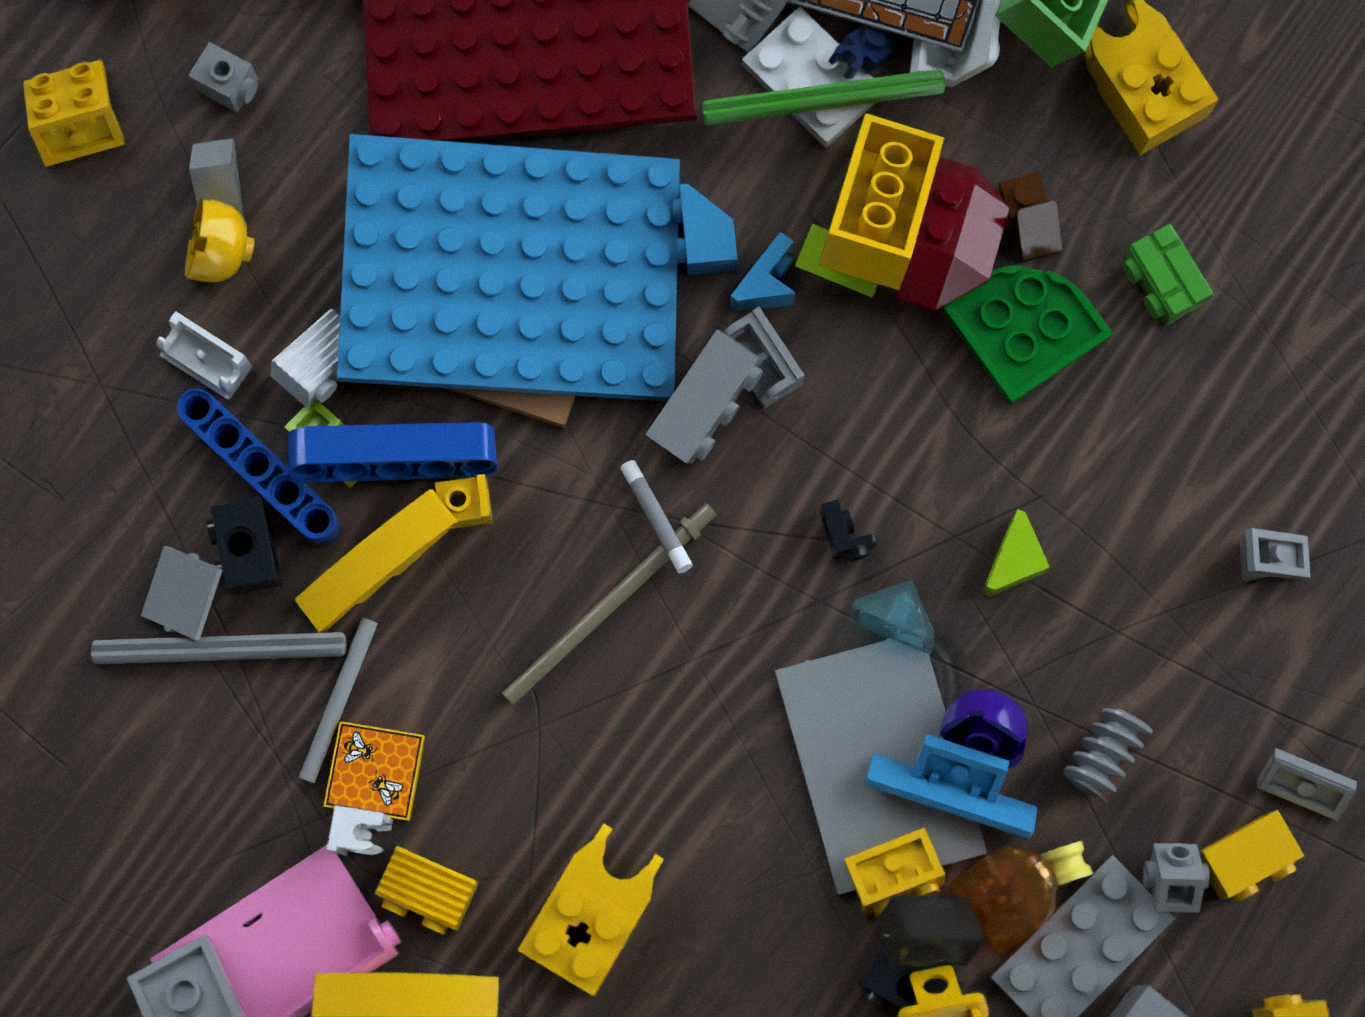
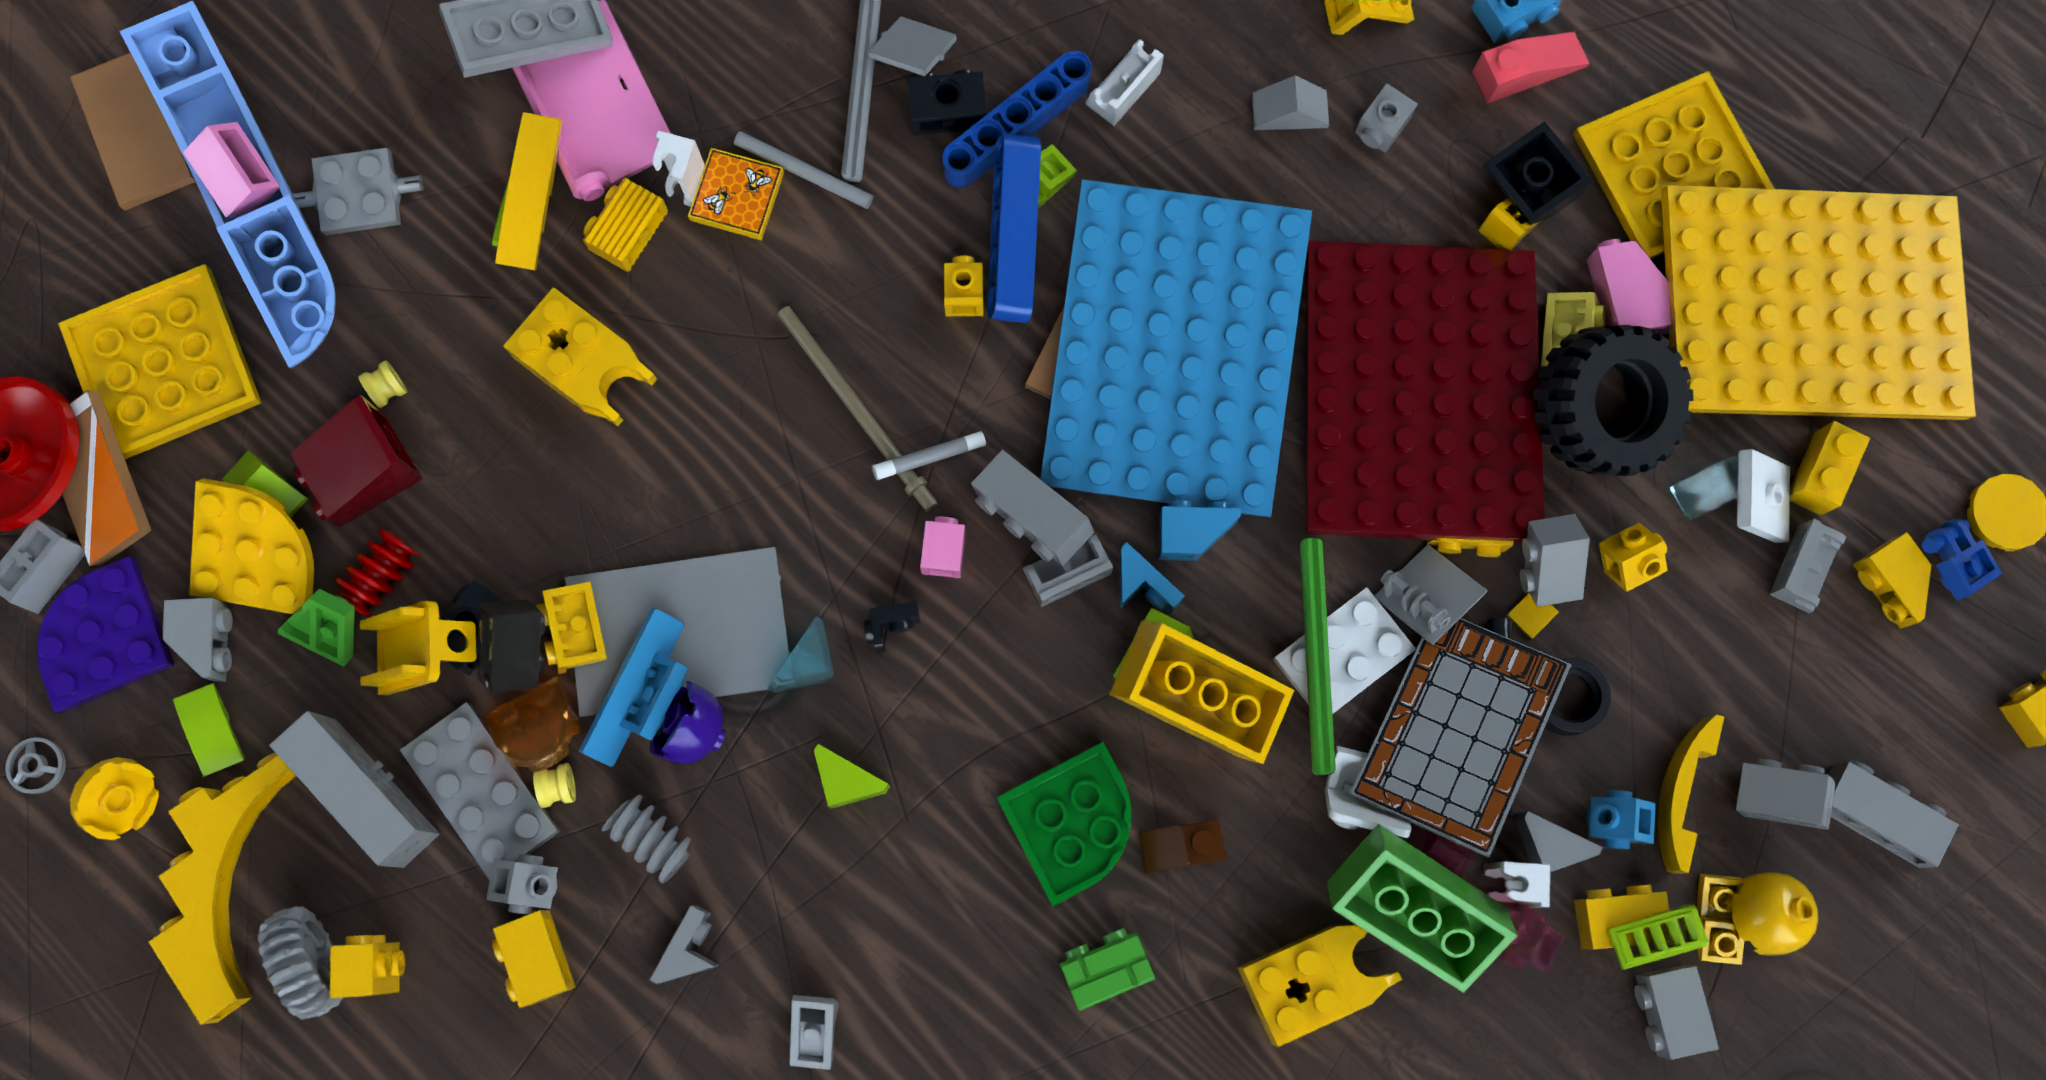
camera: 95 degrees right, 0 degrees up
(217, 242) = (1227, 98): yellow cylinder -> none
(311, 362) = (1105, 162): white brick -> none
(376, 560) = (919, 208): yellow slope -> none
(756, 488) = (943, 547): none -> bright pink brick
(863, 49) = (1366, 703): dark blue plate -> none
(954, 238) = (1167, 763): dark red wedge -> none
(1225, 703) = (678, 957): none -> light grey slope
(1306, 784) = (591, 1026): light grey plate -> none

